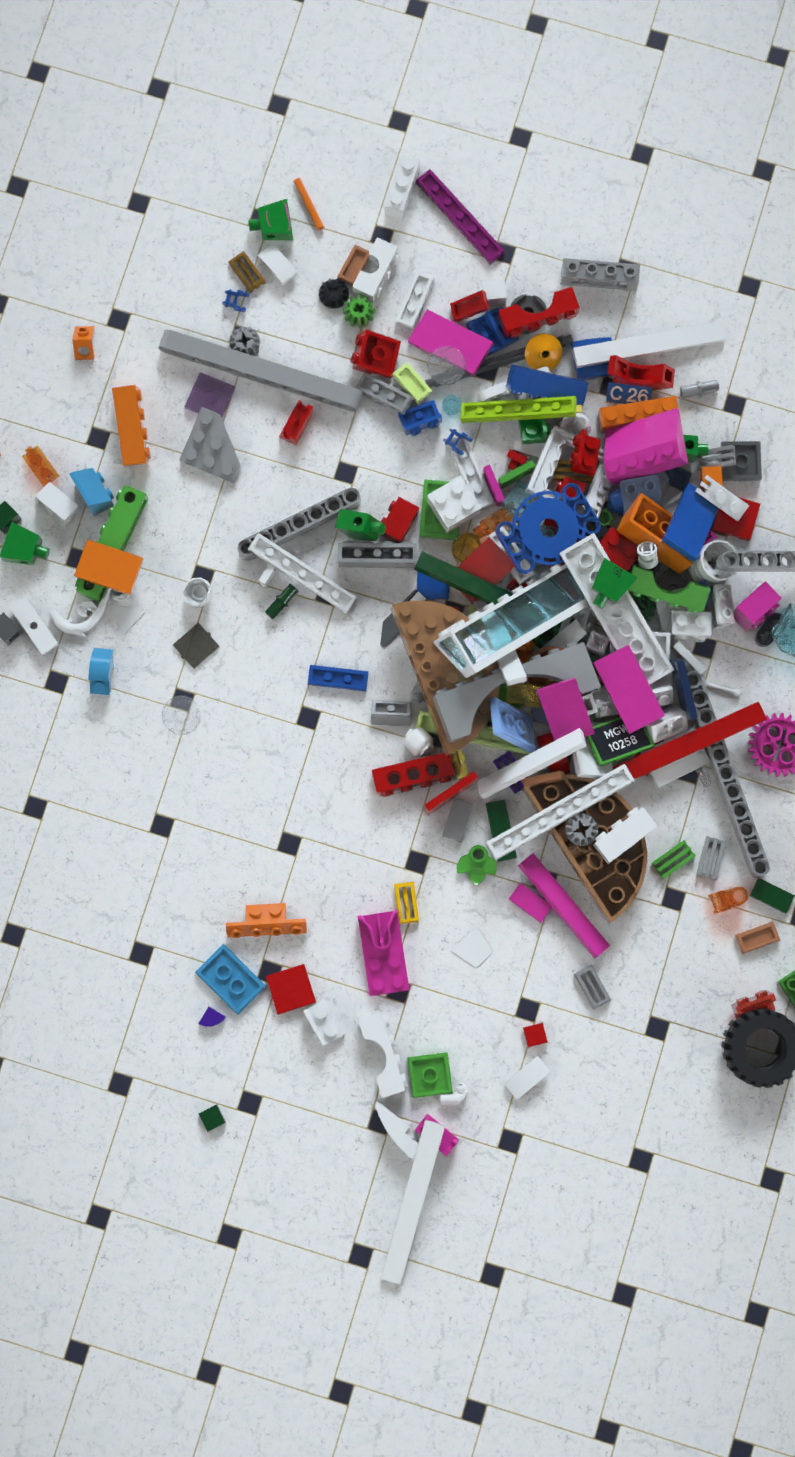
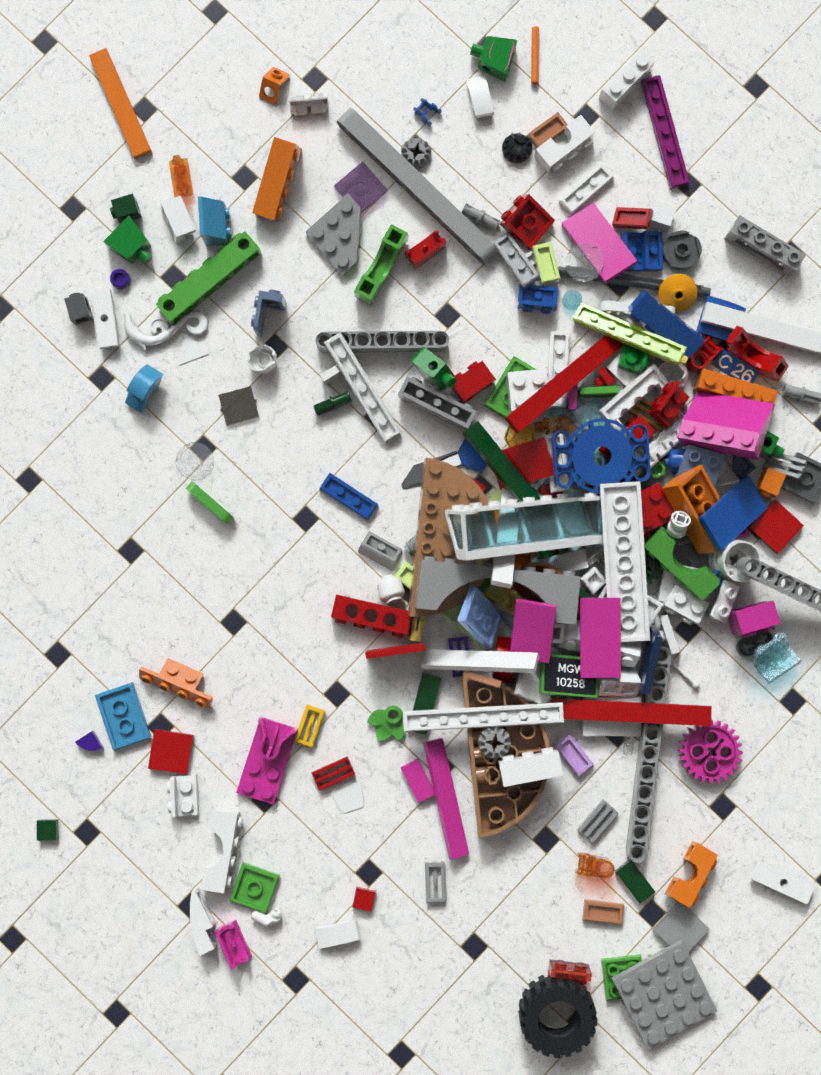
camera: 25 degrees right, 5 degrees up
(29, 584) = (120, 279): none -> dark purple tile
(108, 567) = (193, 298): orange tile -> none
(131, 340) = (316, 102): none -> white hinge
(180, 534) = (270, 299): none -> sand blue bracket
(214, 745) = (209, 502): none -> bright green beam
(256, 285) = (451, 105): pearl gold tile -> none
(264, 456) = (386, 257): none -> bright green arch
(332, 370) = (480, 217): none -> light grey pin
(361, 305) = (536, 170): bright green gear -> none
(412, 1202) = (182, 993): white tile -> none
(448, 441) = (564, 332): blue piece -> none
(457, 820) = (390, 675): light grey tile -> none
(460, 921) = (318, 779): none -> red tile
(481, 480) = (562, 383): none -> red tile
(489, 509) = (557, 411): none -> clear light blue tile
(516, 320) = (668, 252): red arch -> none
(595, 394) = (704, 354): none -> red piece
(611, 583) = (632, 535): green torso -> none
(660, 809) = (574, 755): none -> lavender tile
(687, 849) = (565, 805): bright green tile -> none
(723, 498) = (772, 505): white hinge -> none

